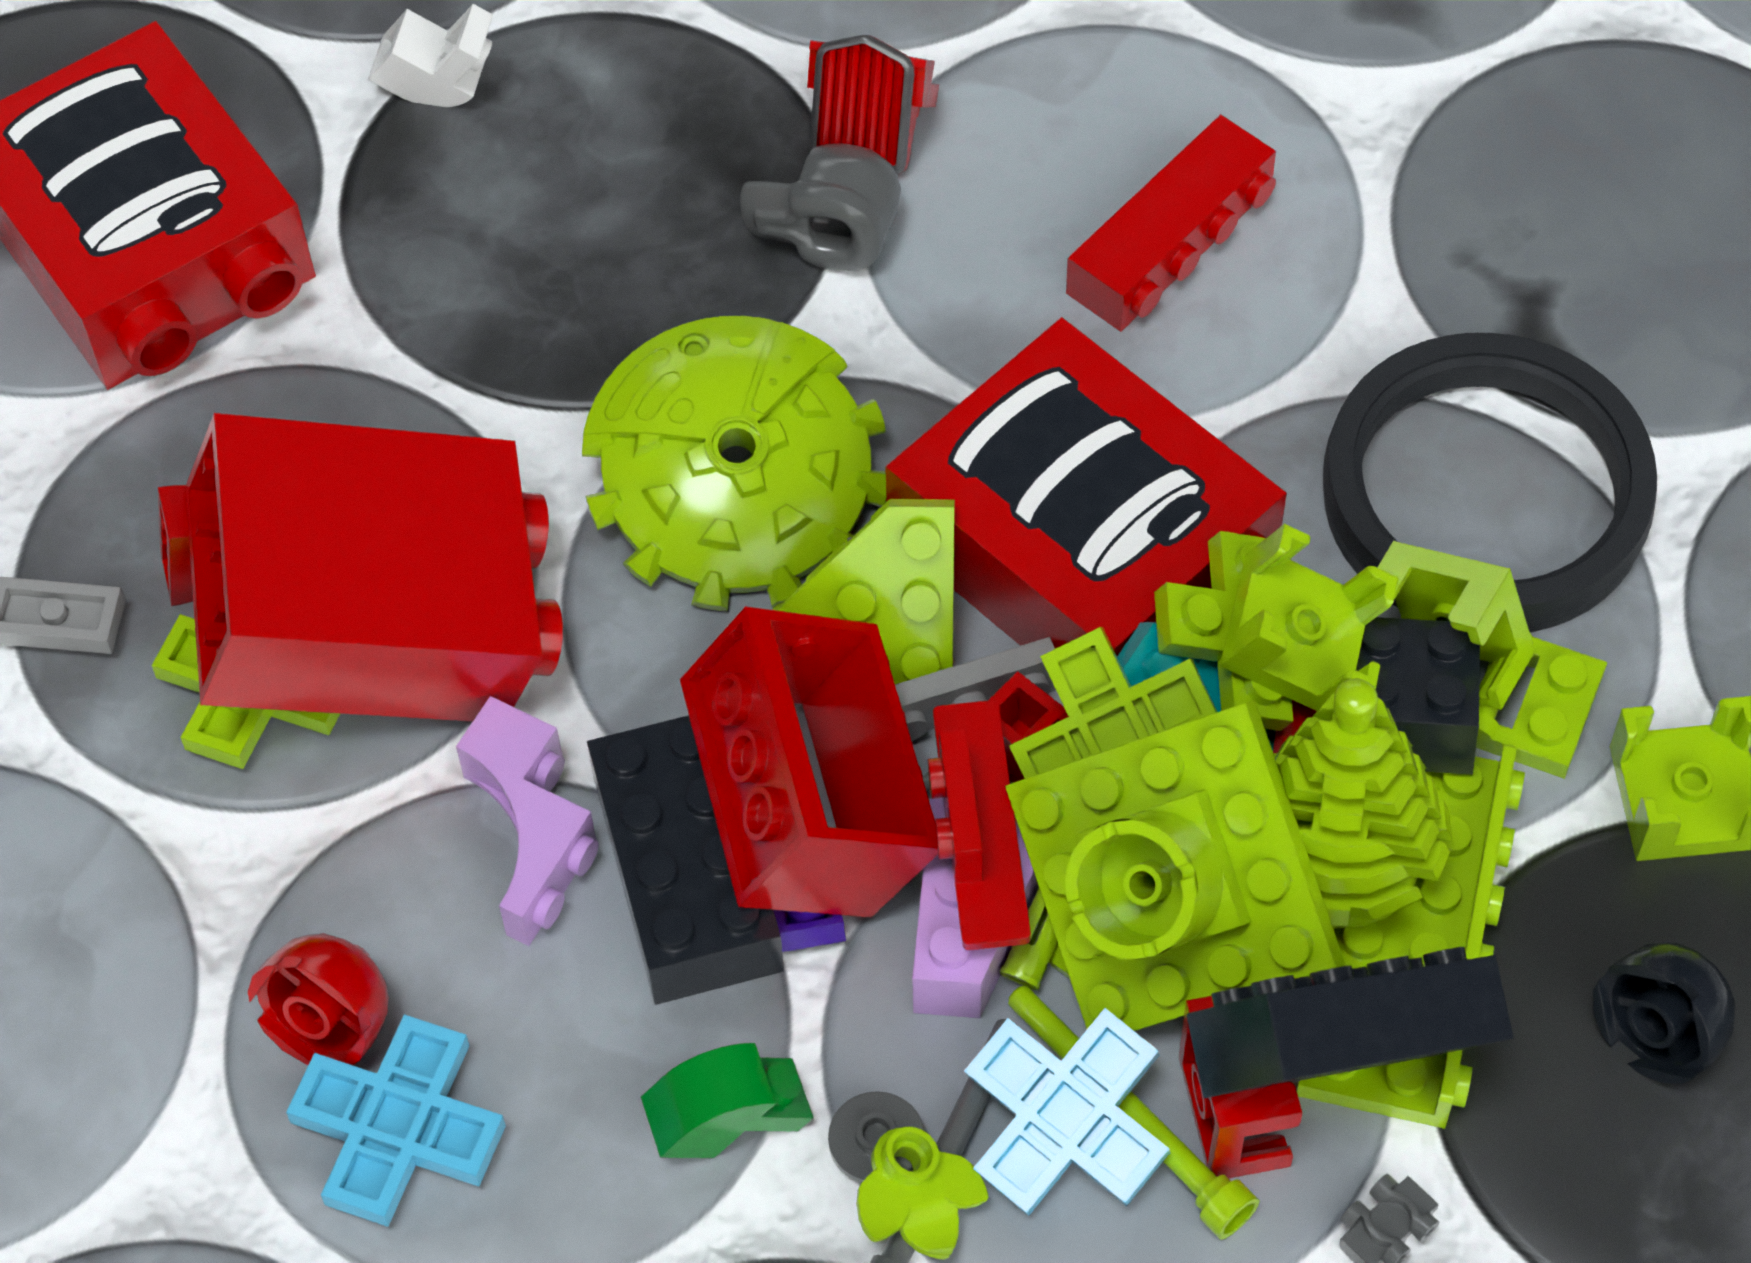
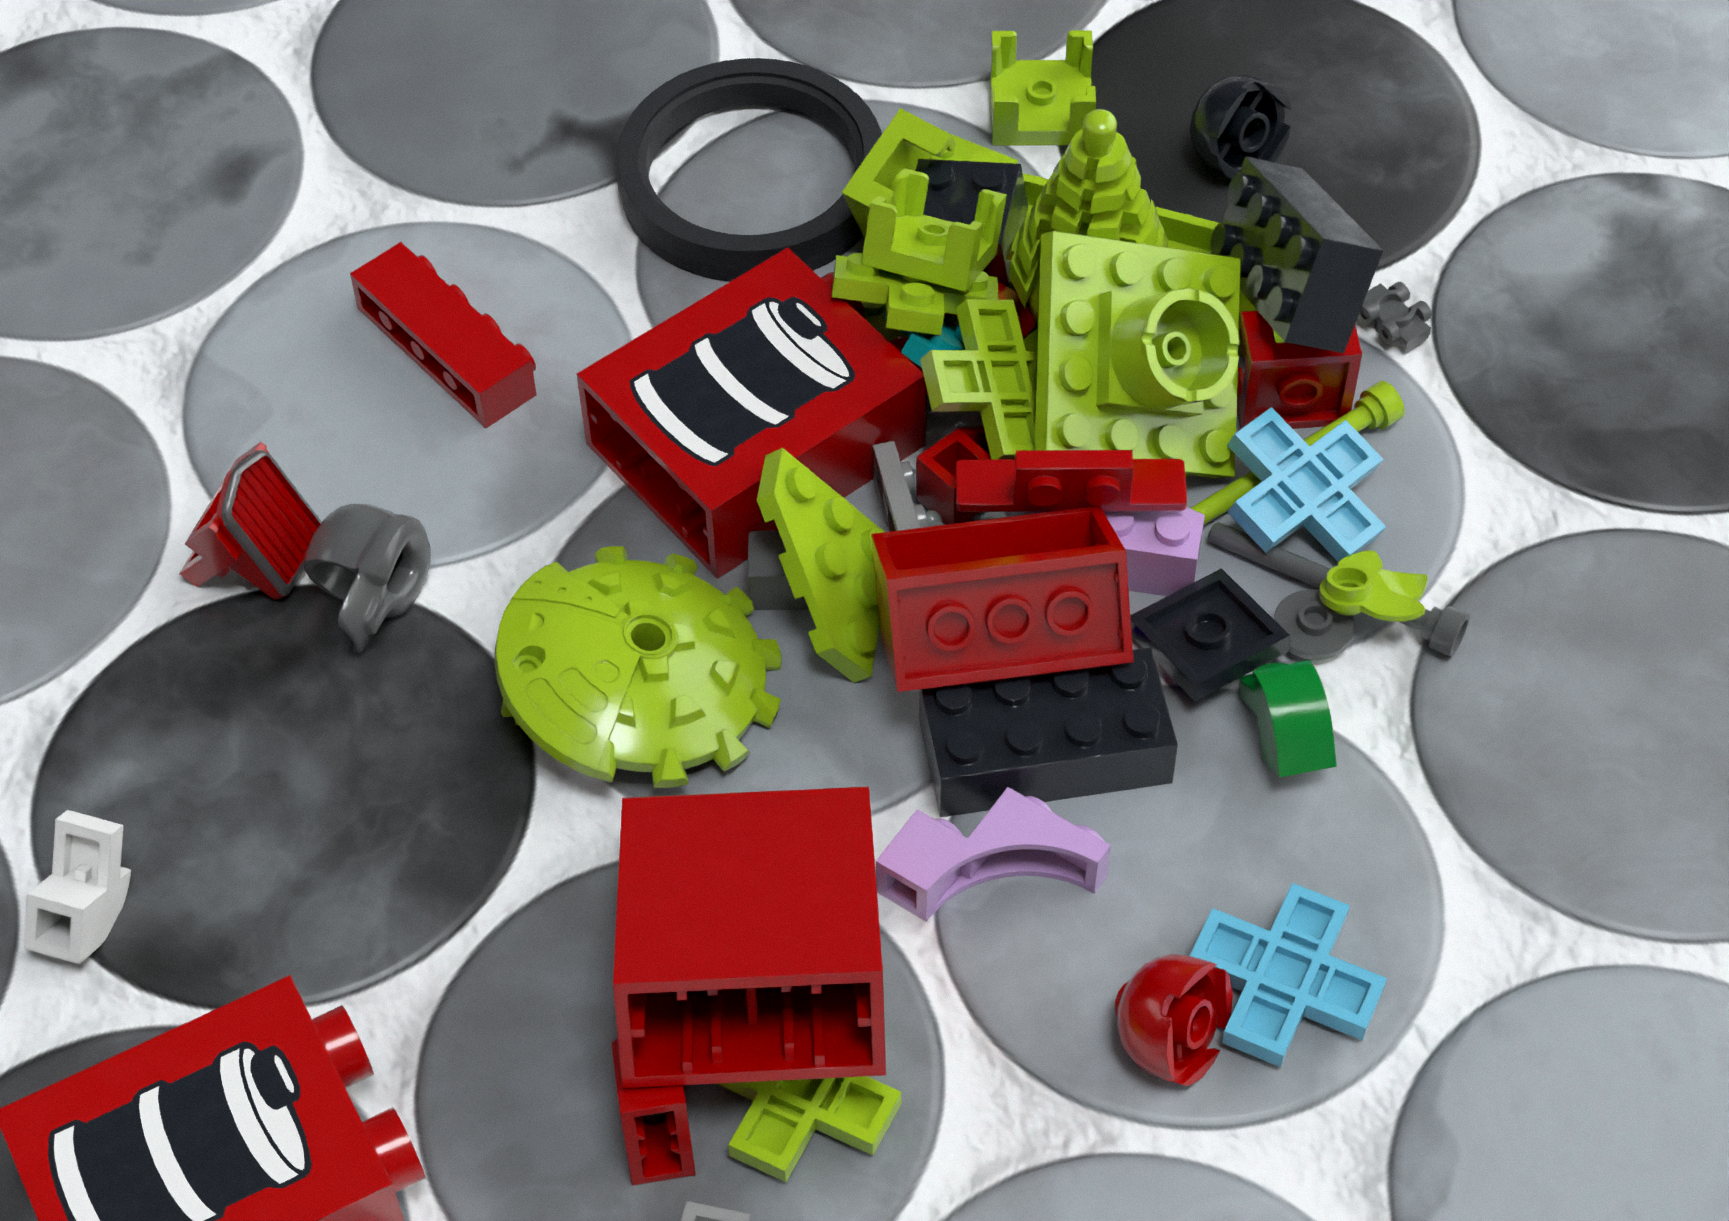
camera: 85 degrees left, 5 degrees down
(840, 1017) = (1209, 634): none -> black plate

